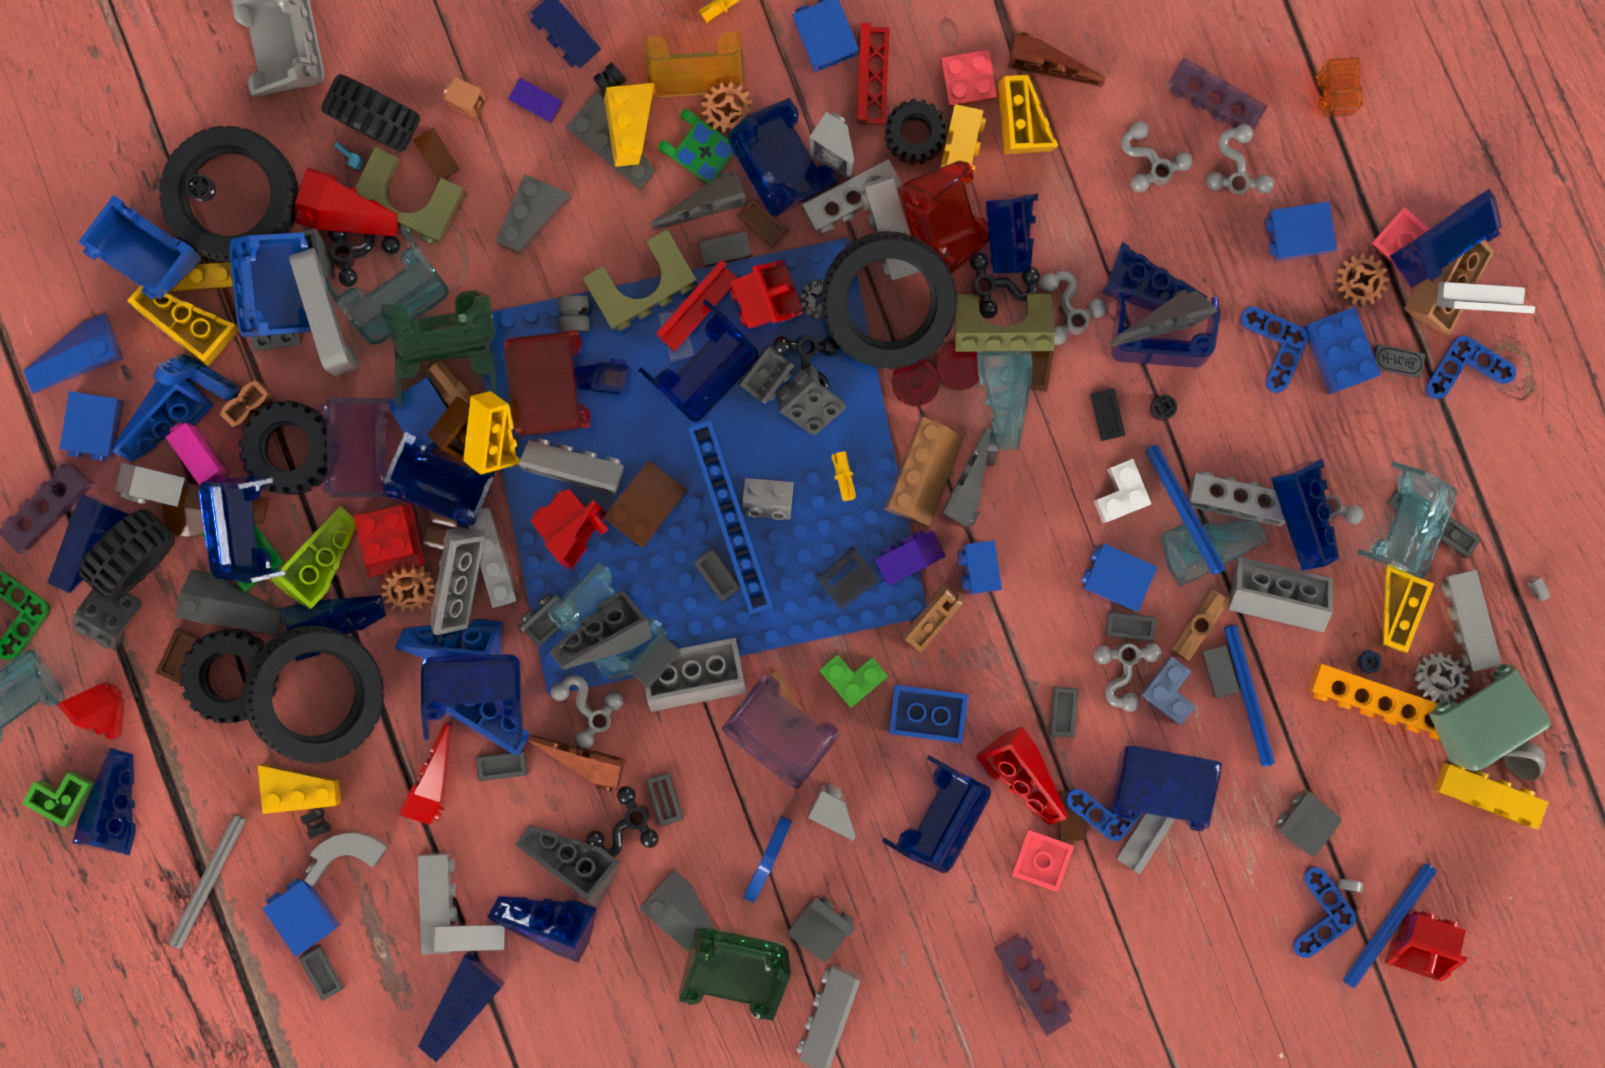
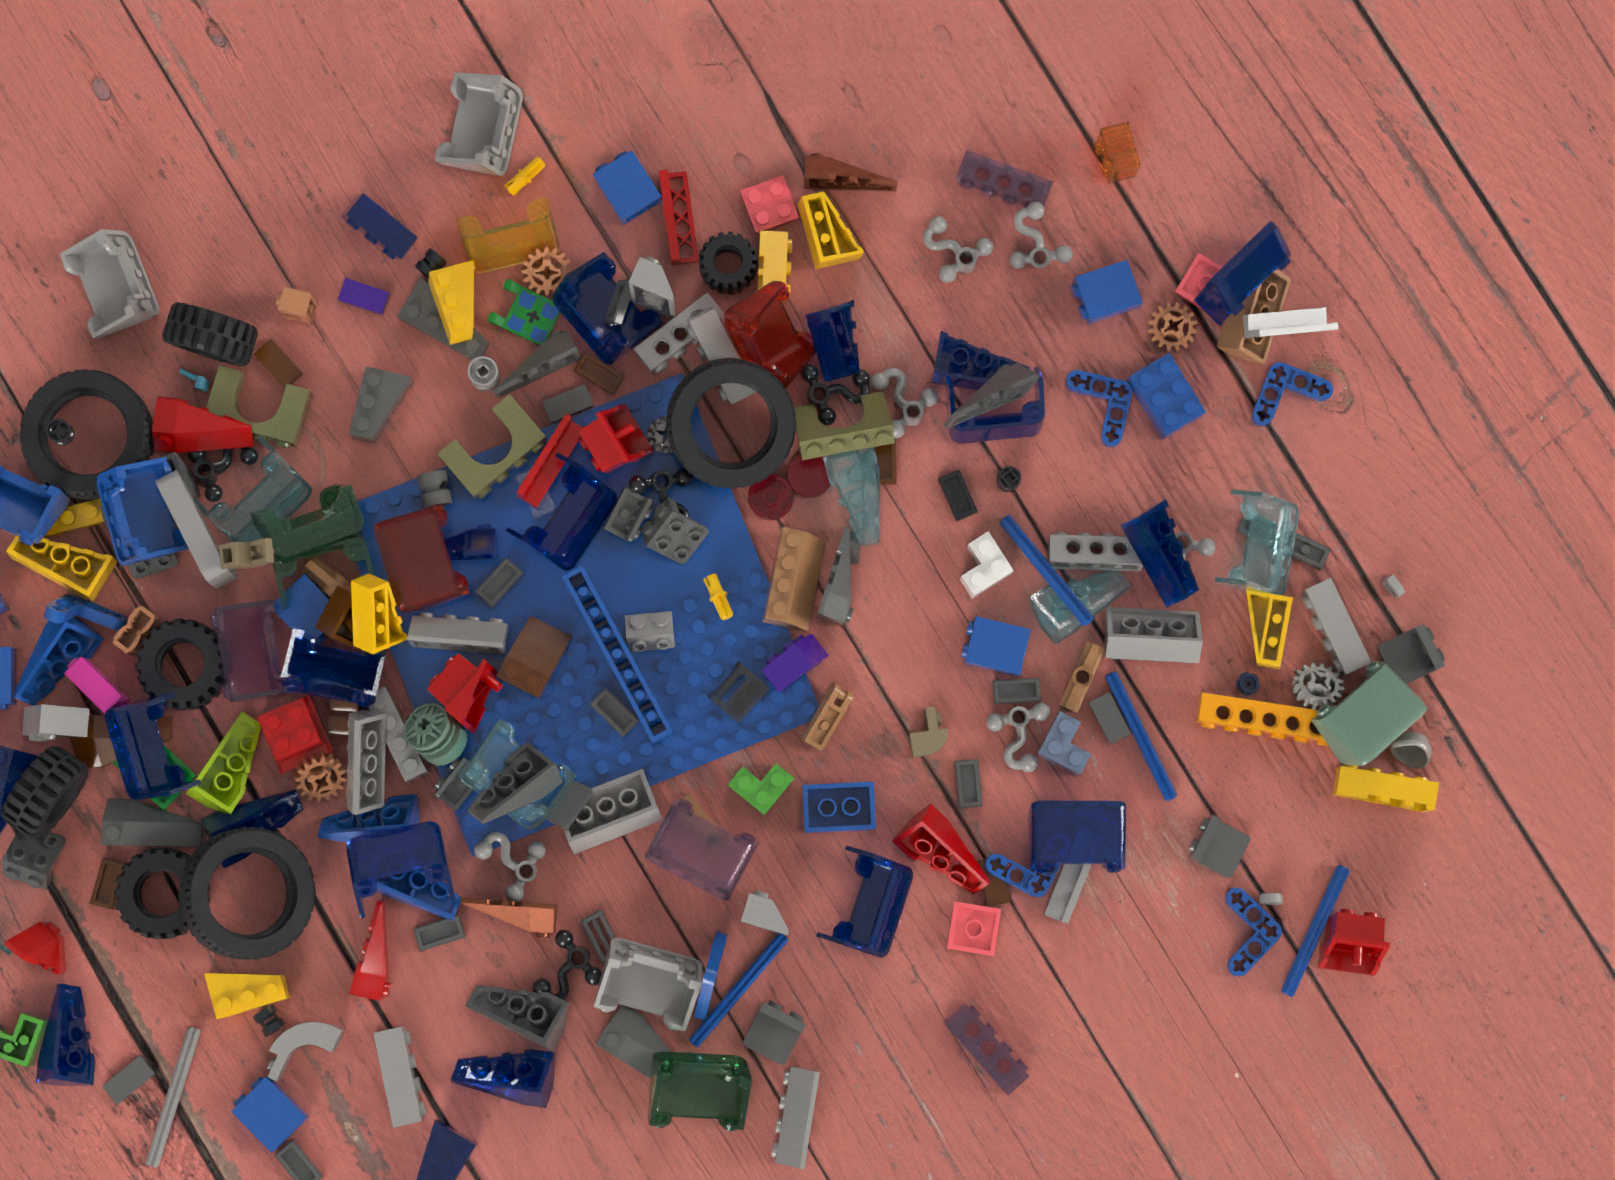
camera: 20 degrees left, 5 degrees down
(166, 856) = (129, 1079): none -> dark grey tile
(369, 349) = (246, 554): none -> dark tan brick
(467, 938) = (435, 1103): light grey tile -> none
(530, 566) = (435, 734): none -> sand green wheel
(623, 421) = (499, 582): none -> dark grey tile
(644, 203) = (484, 373): none -> light grey wheel
(705, 854) = (649, 982): none -> light grey windscreen
(790, 880) = (738, 989): none -> blue axle
(795, 154) = (618, 303): none -> dark grey tile
(980, 567) = (862, 658): blue brick -> none
(1034, 662) = (929, 741): none -> dark tan brick
(1399, 361) = (1222, 396): dark grey tile -> none
(1545, 662) = (1412, 654): none -> dark grey bracket

